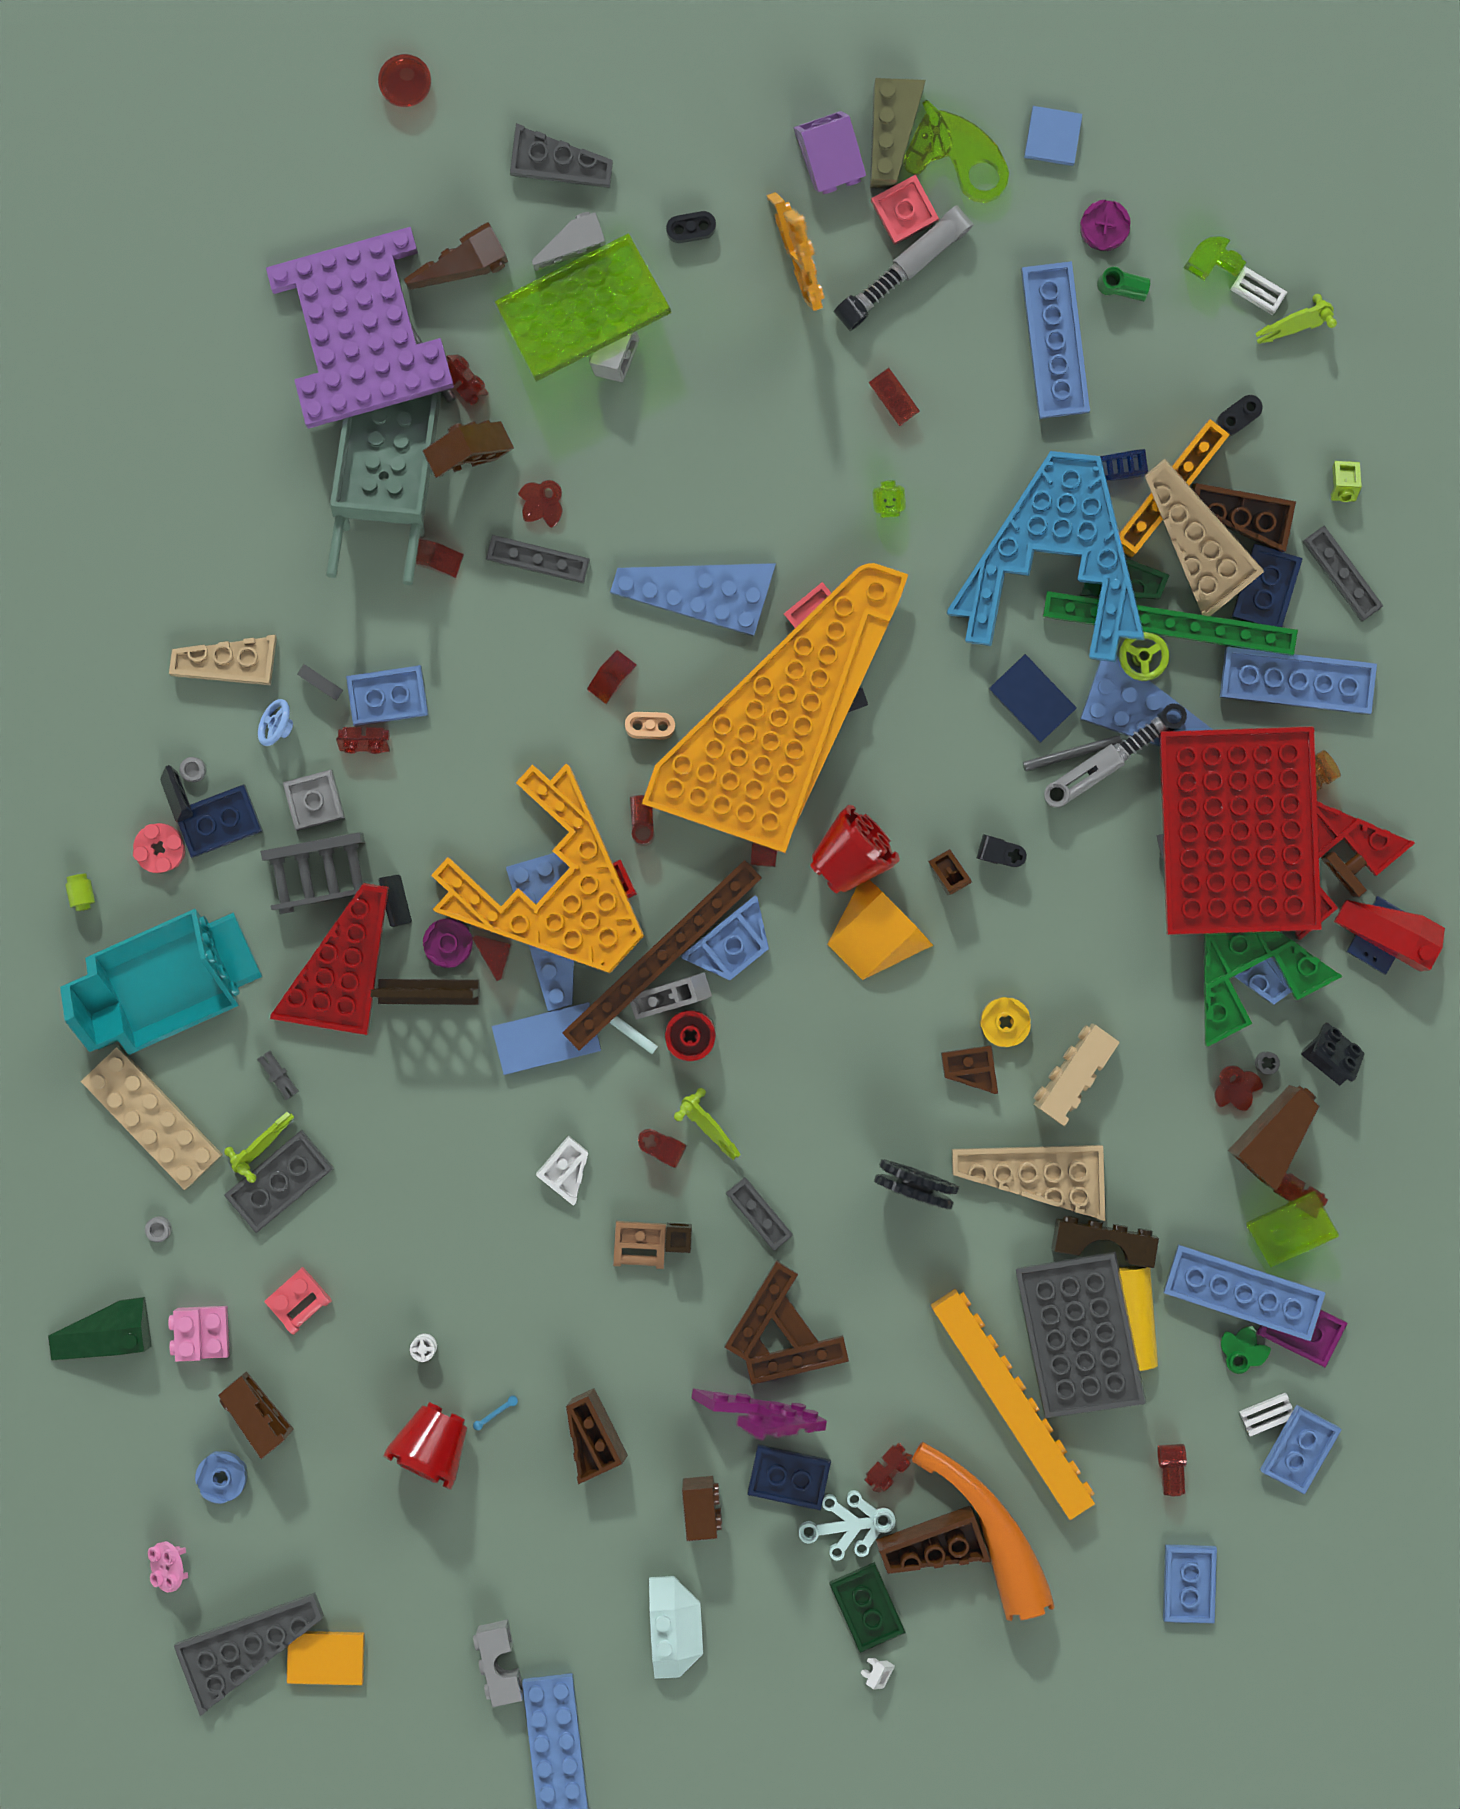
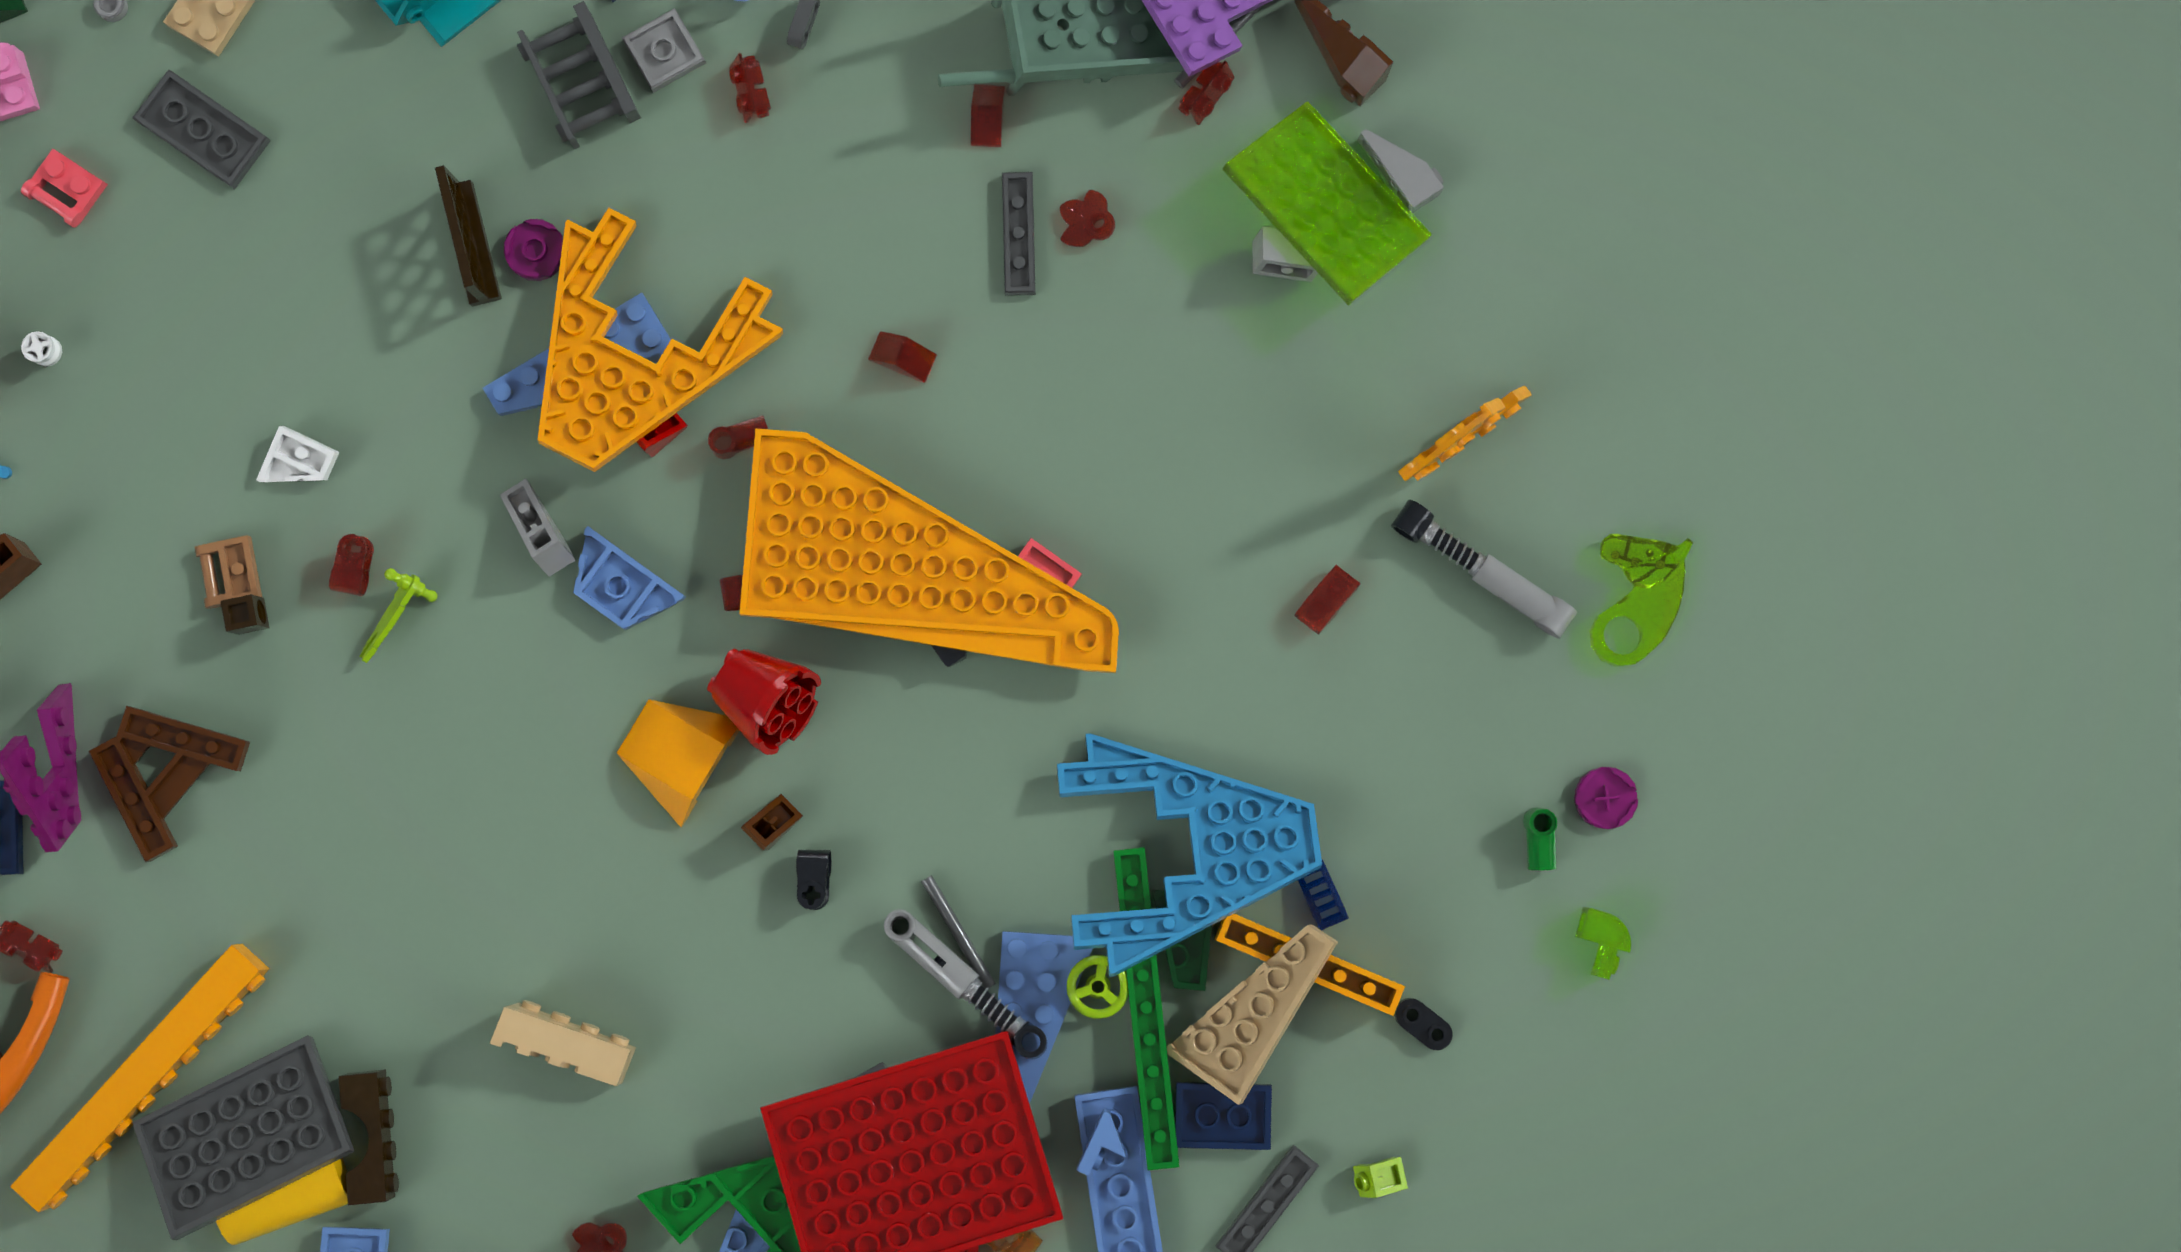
camera: 75 degrees right, 5 degrees down
(241, 1161) = (213, 78): lime piece -> none
(278, 1075) = (326, 94): dark grey pin -> none
(339, 977) = (468, 131): red wing -> none
(387, 695) = (809, 102): medium blue tile -> none
(396, 905) = (568, 174): black slope -> none
(468, 444) = (1125, 112): reddish brown wedge -> none
(495, 954) = (534, 306): clear red slope -> none
(539, 1040) = (450, 395): medium blue tile -> none
(554, 160) = (1492, 122): dark grey wing -> none
(634, 1034) = (486, 484): light aqua bar -> none
(650, 723) = (855, 417): light nougat plate -> none
(661, 955) = (582, 503): reddish brown plate -> none
(690, 224) = (1461, 306): black plate -> none
(690, 1049) = (481, 575): red brick -> none
(711, 593) = (1033, 449): medium blue wing -> none
(759, 1213) = (301, 705): dark grey tile -> none
(830, 152) = (1595, 444): medium lavender slope -> none
(889, 499) = (1202, 626): clear neon green head -> none
(892, 122) = (1655, 508): olive wedge -> none
(904, 209) = (1554, 552): coral plate -> none
(916, 1184) = (375, 882): black piece -> none
(971, 1067) = (542, 913): reddish brown wing -> none
(1019, 1019) = (591, 946): yellow plate -> none
(1032, 698) = (1011, 866): dark blue tile -> none
(1050, 1174) = (434, 1041): tan wing -> none
(1053, 135) = (1694, 705): medium blue tile -> none
(1055, 340) = (1450, 774): medium blue plate -> none
(1250, 514) = (1305, 1073): reddish brown wedge -> none
(1254, 299) = (1569, 1002): white tile -> none
(1258, 681) = (1104, 1136): none -> medium blue slope
(1300, 320) = (1558, 1066): lime piece -> none

